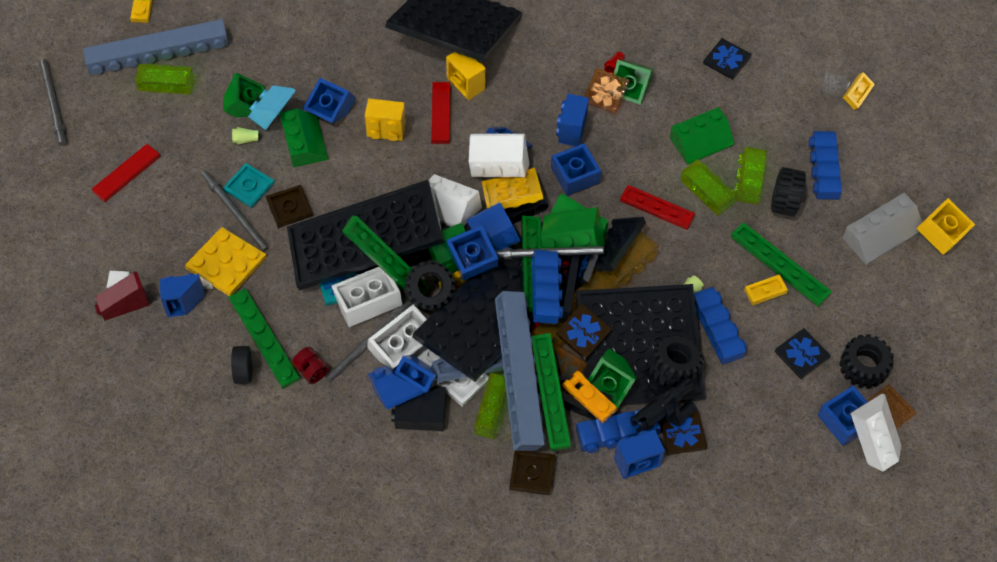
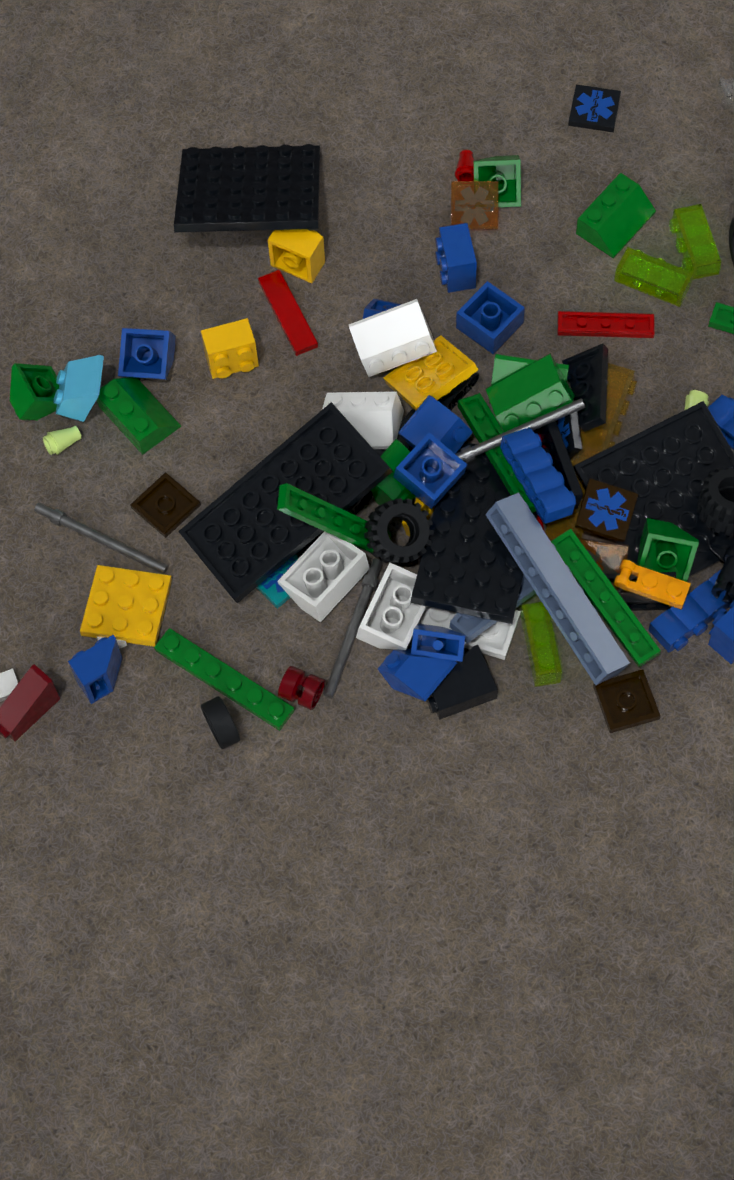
camera: 20 degrees left, 5 degrees up
(248, 185) = (100, 499): teal tile -> none

